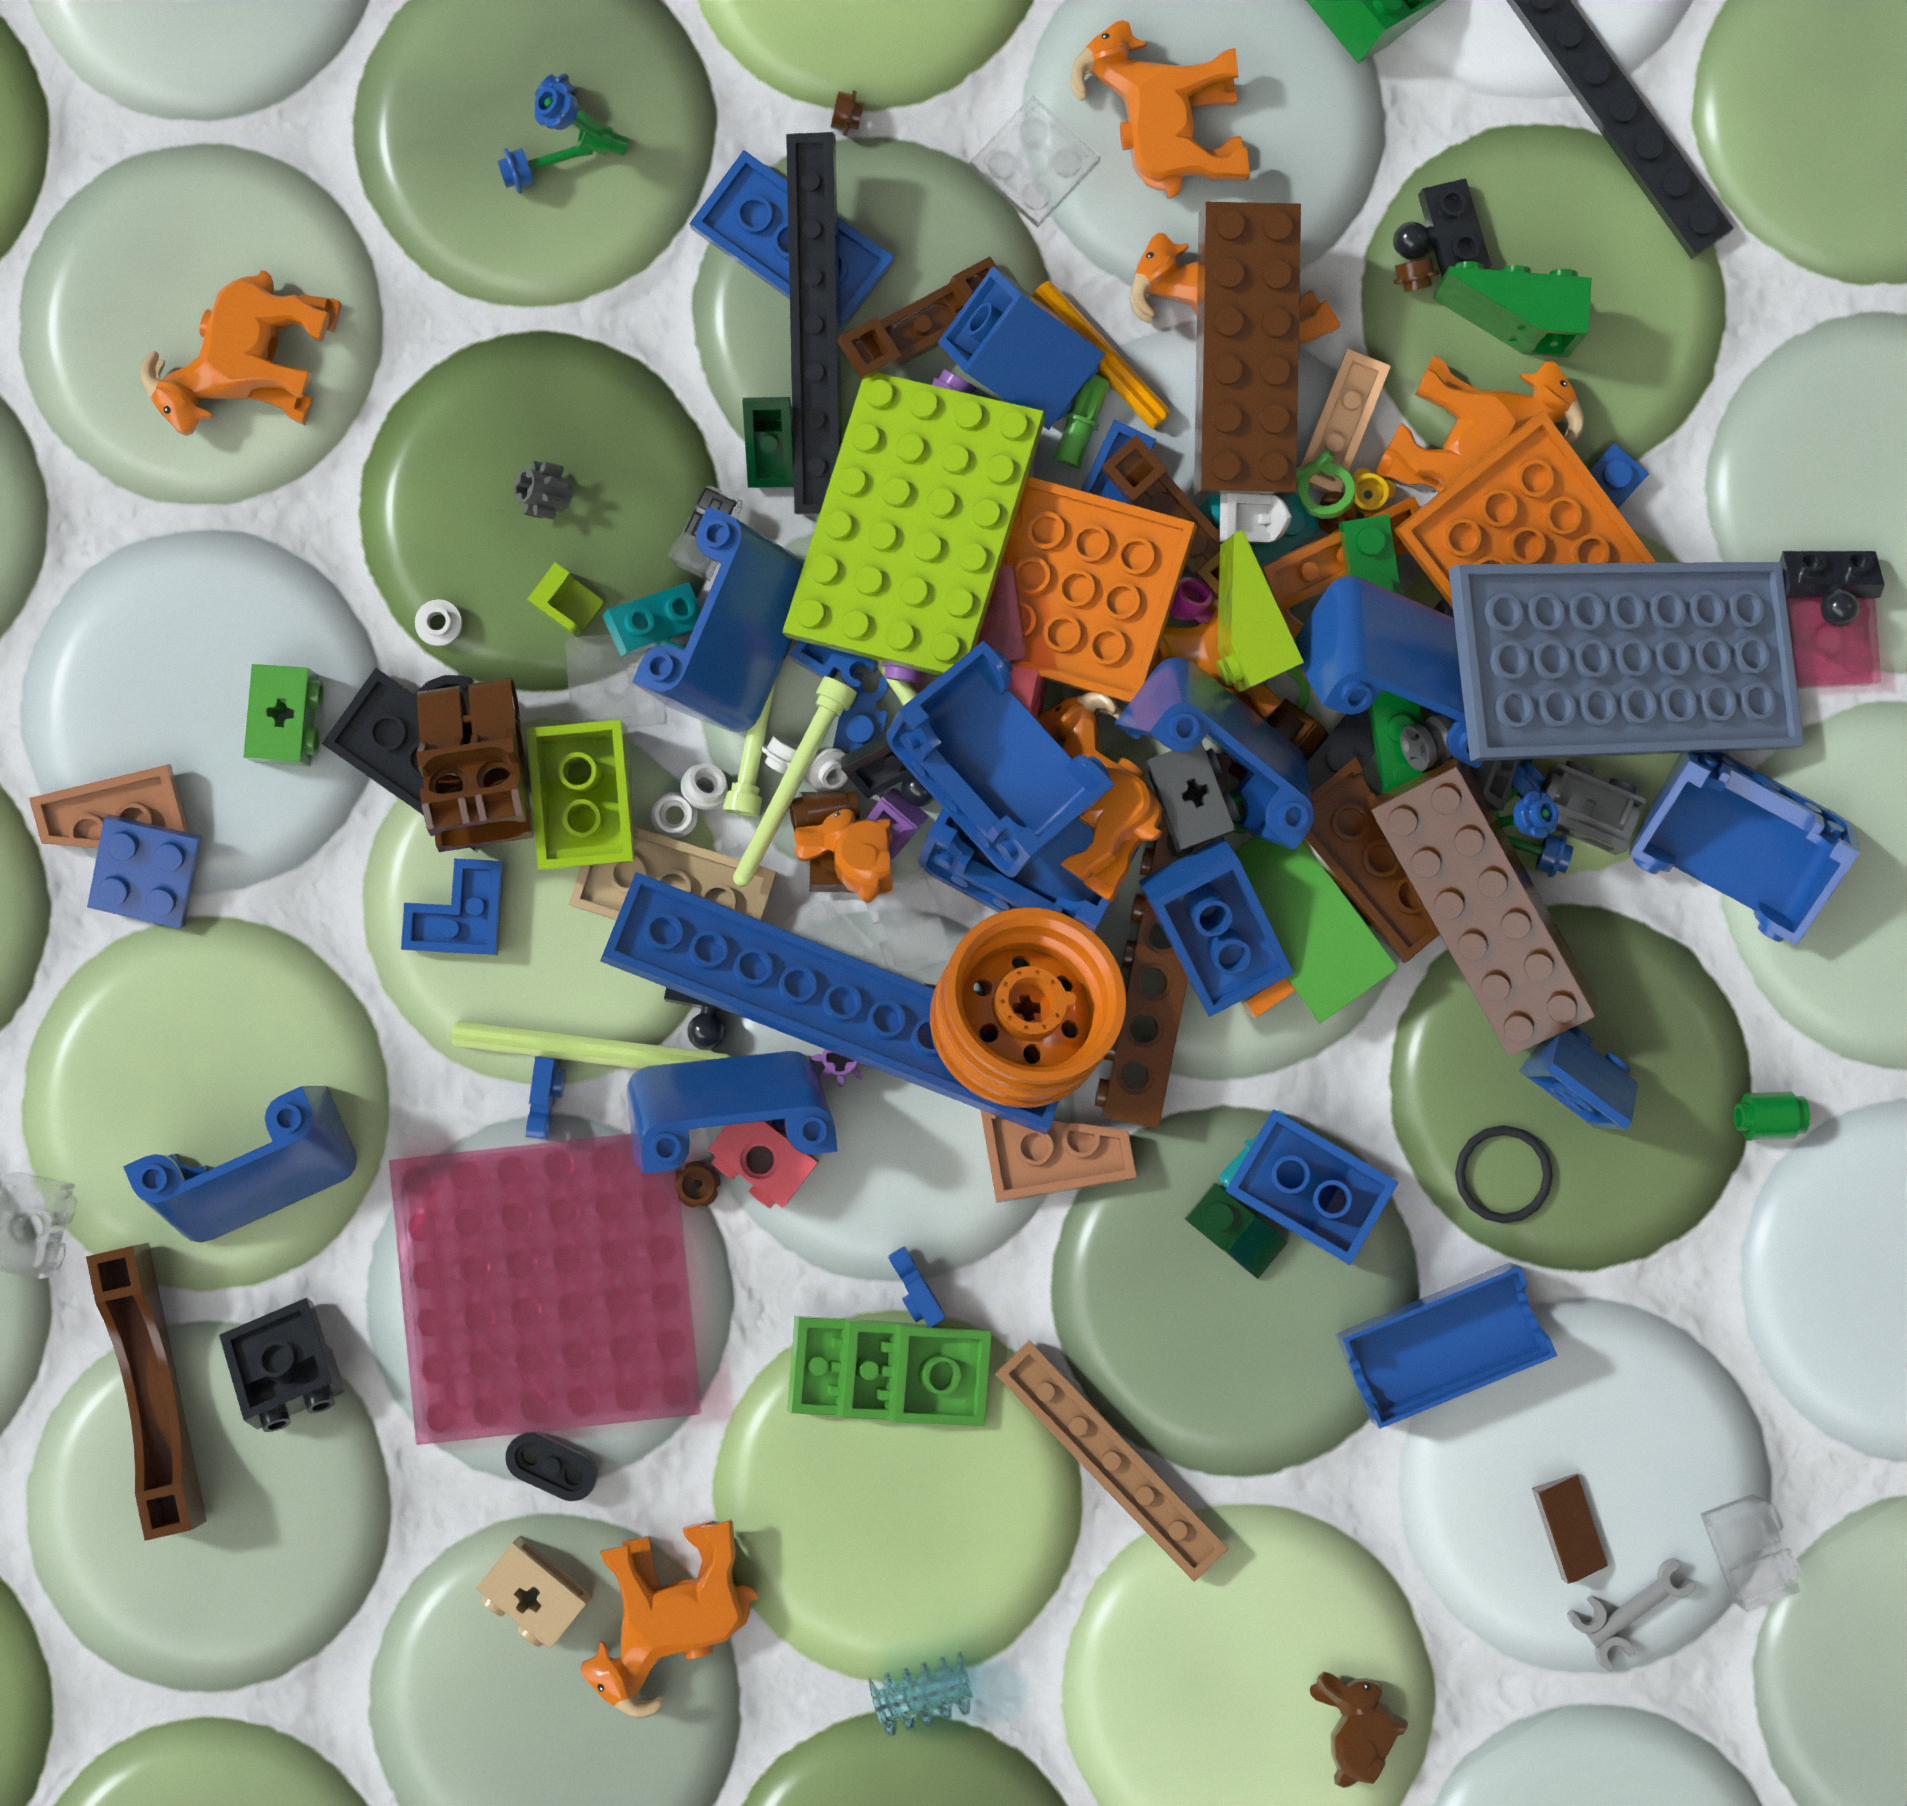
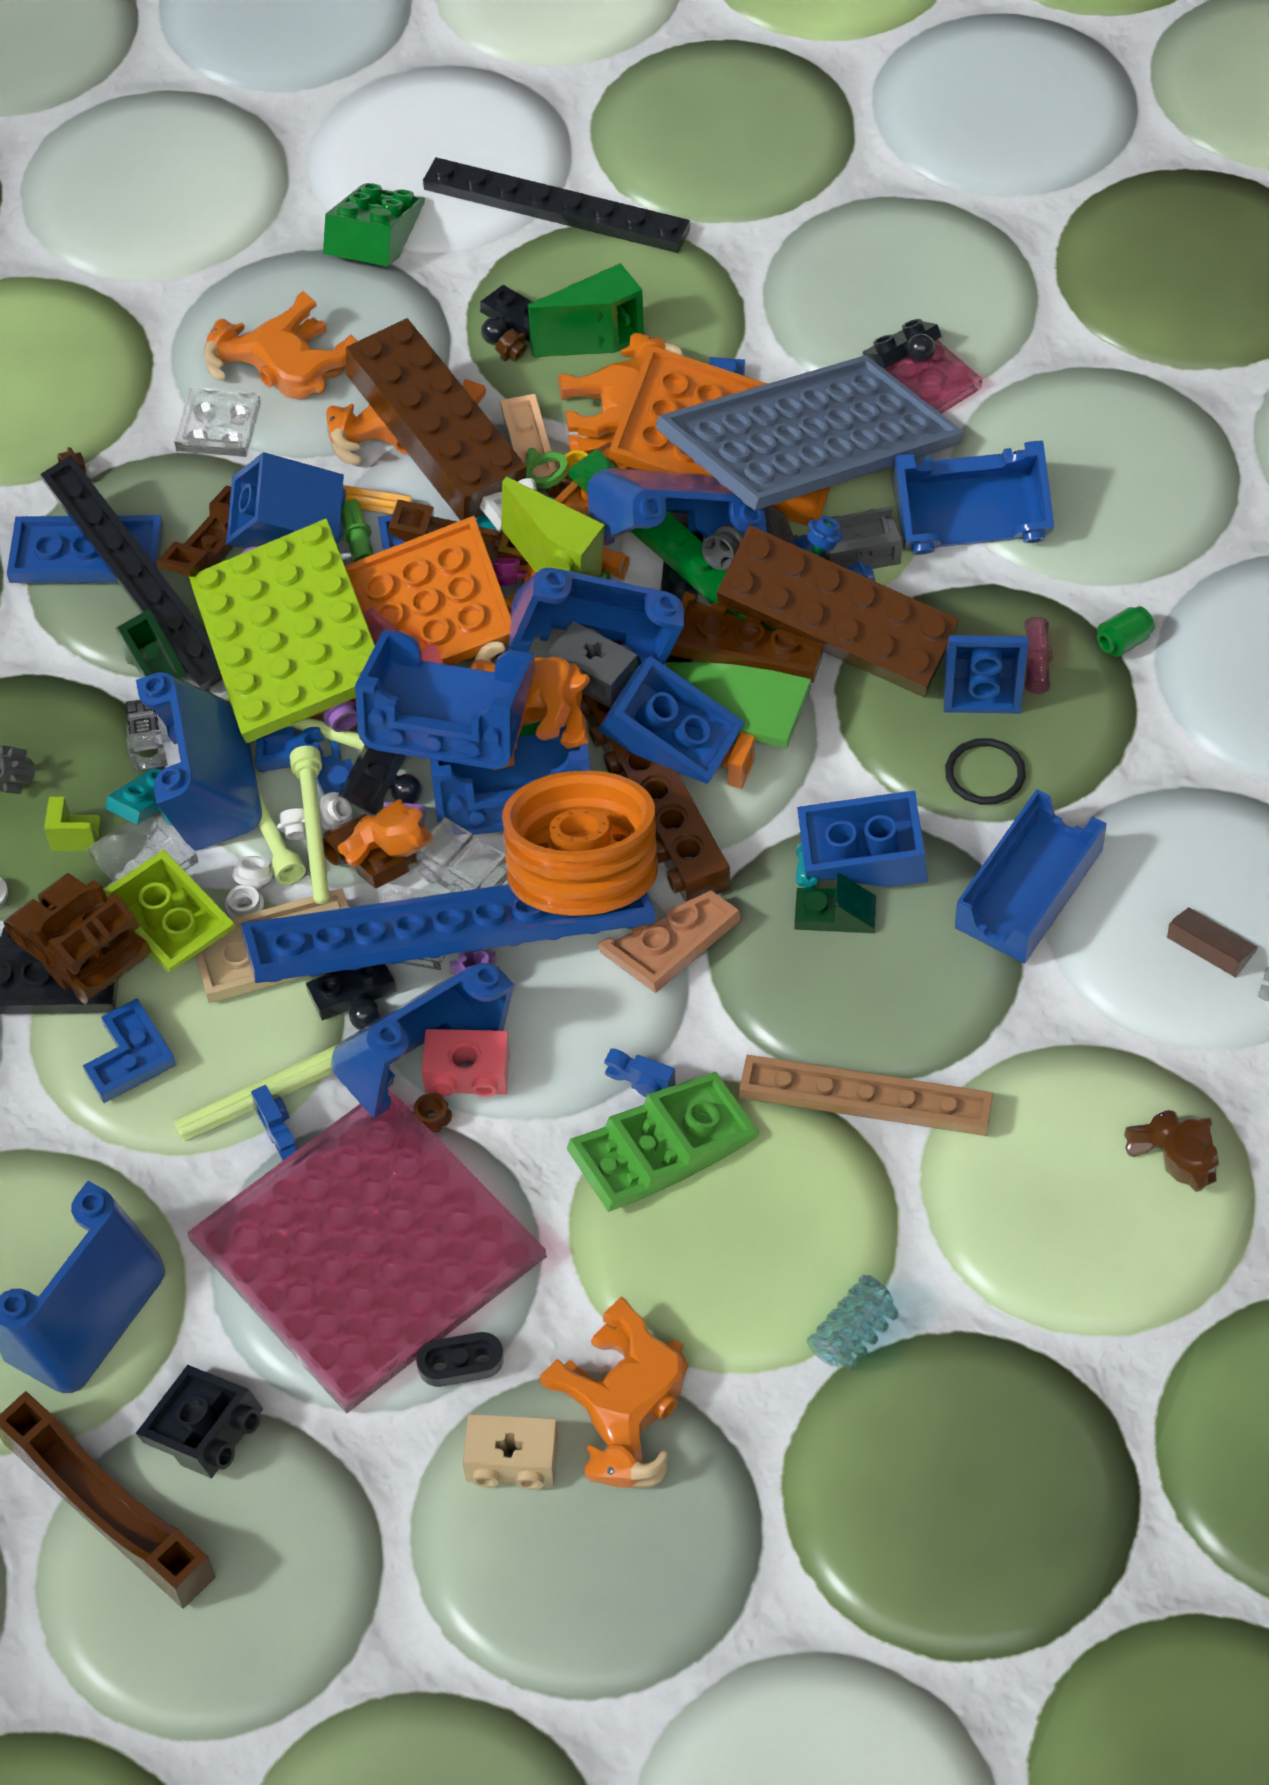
camera: 35 degrees left, 30 degrees down
(1663, 1076) = (1038, 655): none -> clear pink pin

